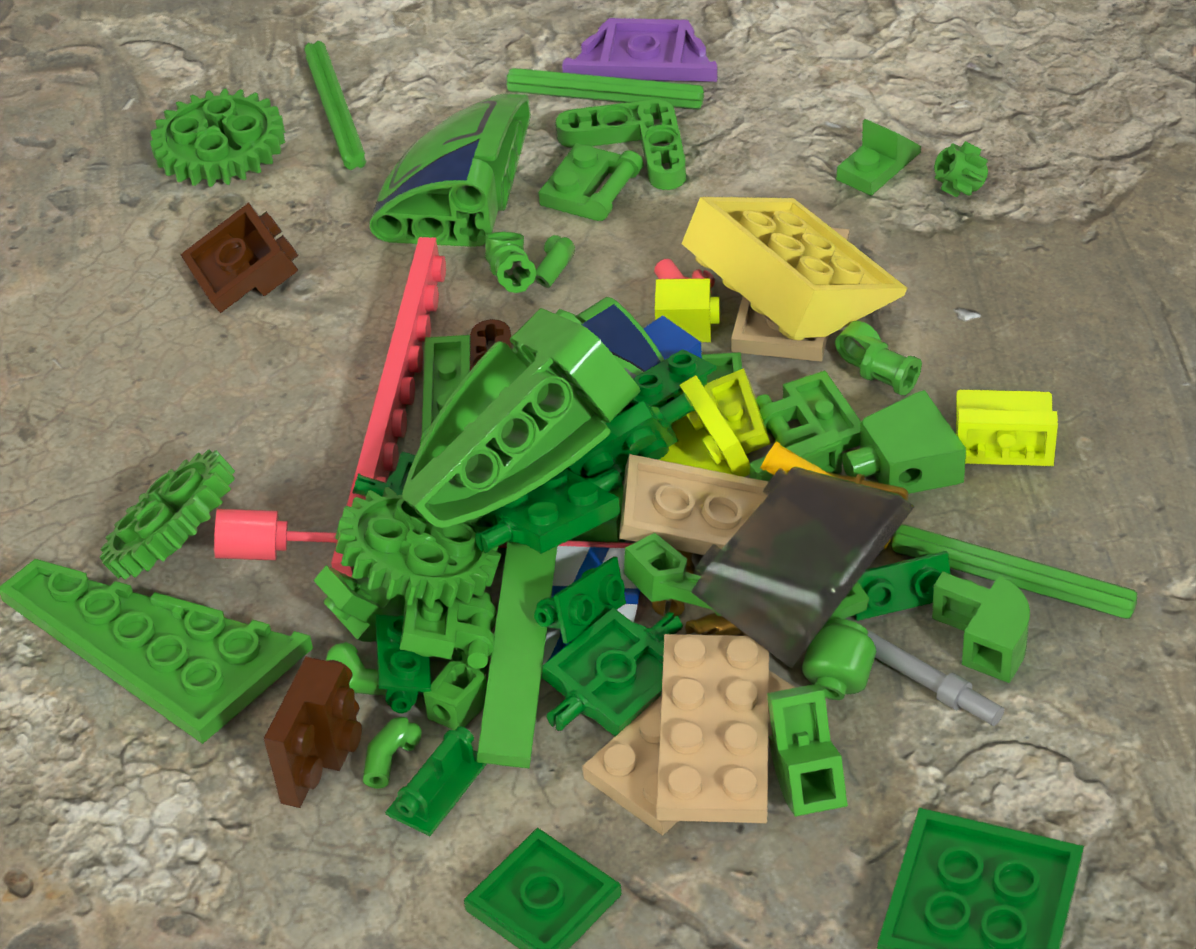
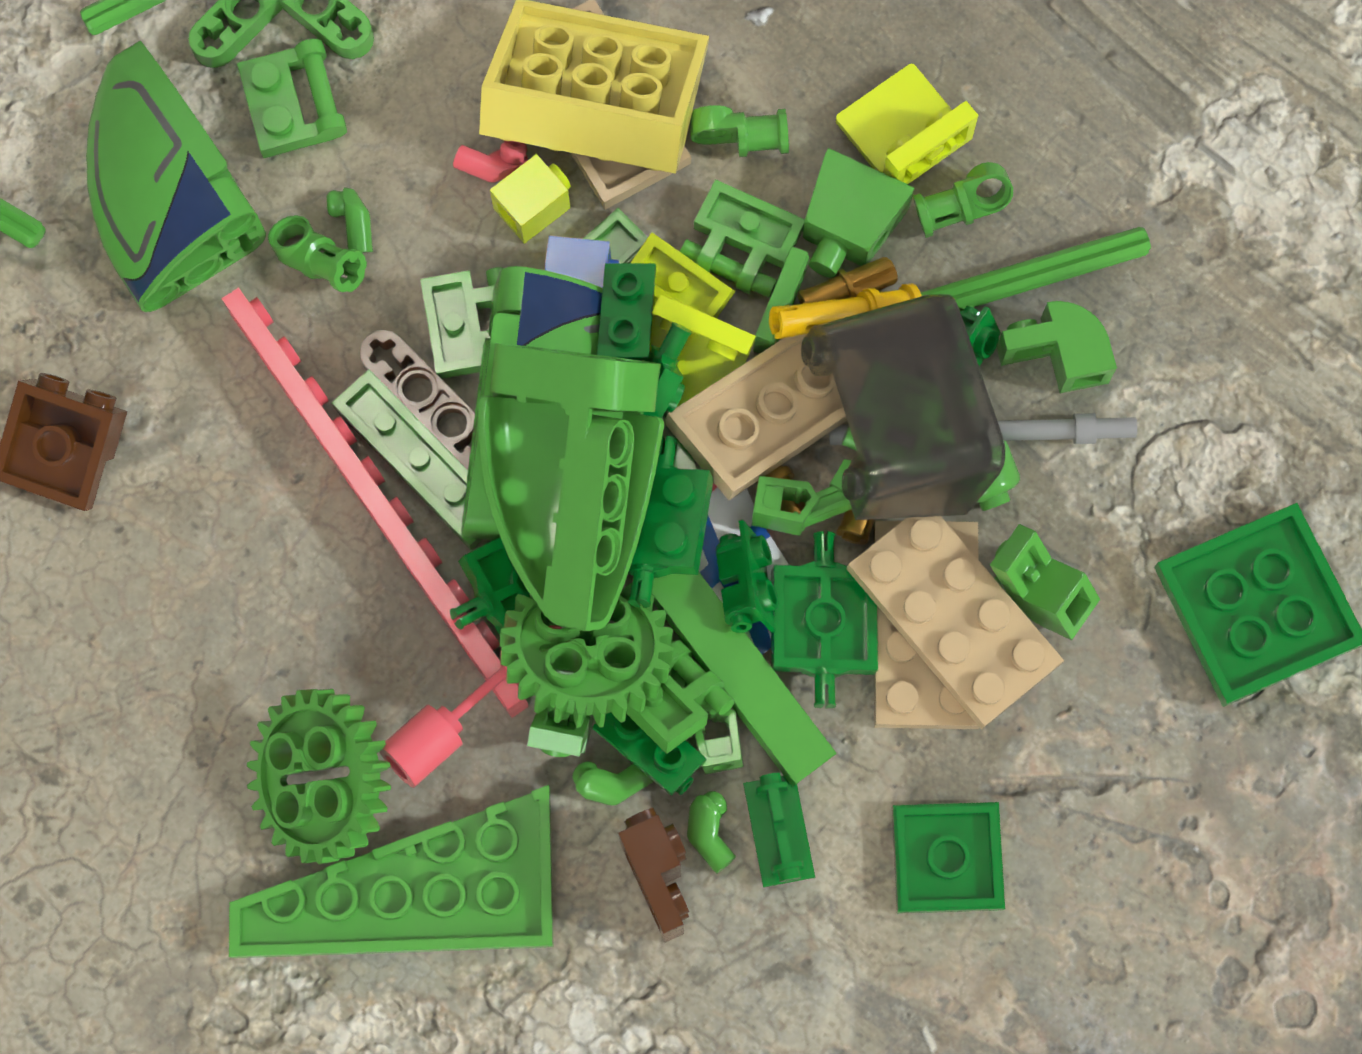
camera: 45 degrees left, 30 degrees up
(1001, 489) = (962, 202): none -> bright green connector

